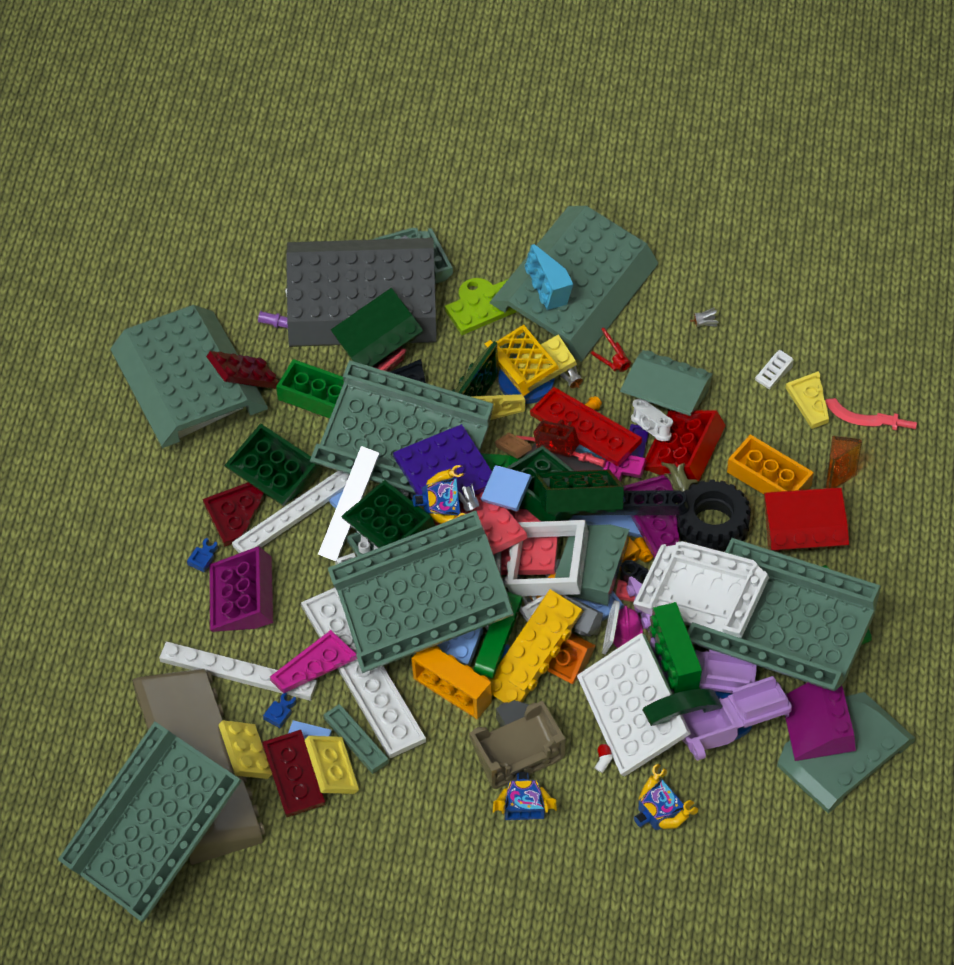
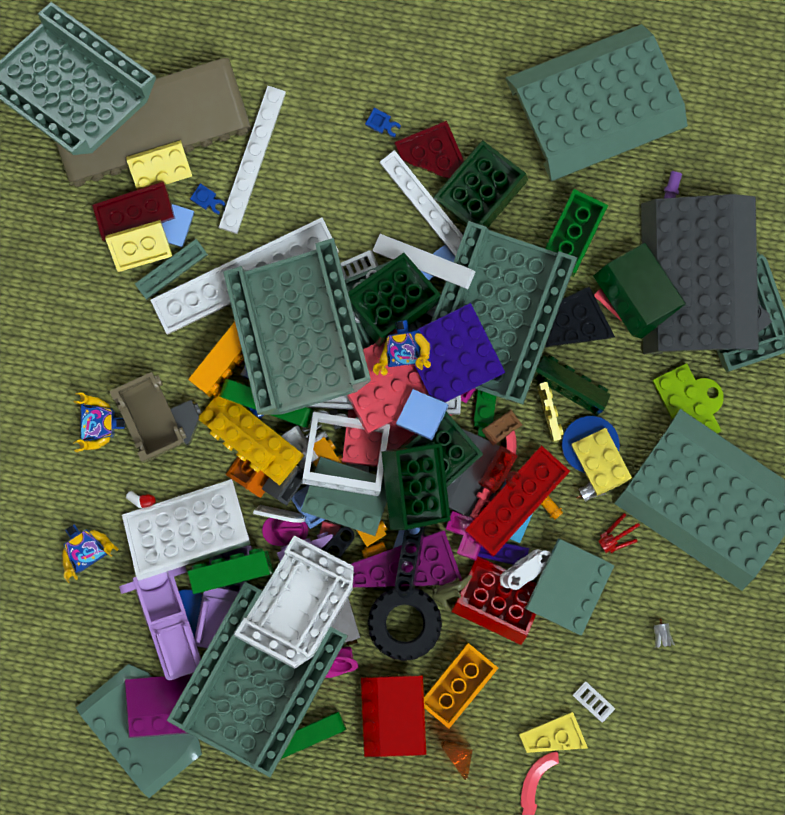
camera: 90 degrees right, 30 degrees up
(241, 591) = (337, 160): magenta slope -> none
(243, 369) = (593, 154): dark red plate -> none
(316, 660) = (250, 231): dark pink wing -> none
(470, 501) = (407, 379): flat silver piece -> none
(510, 365) = (597, 423): yellow fence -> none
(548, 278) = (683, 470): medium azure slope -> none
(681, 703) = (167, 574): dark green slope -> none

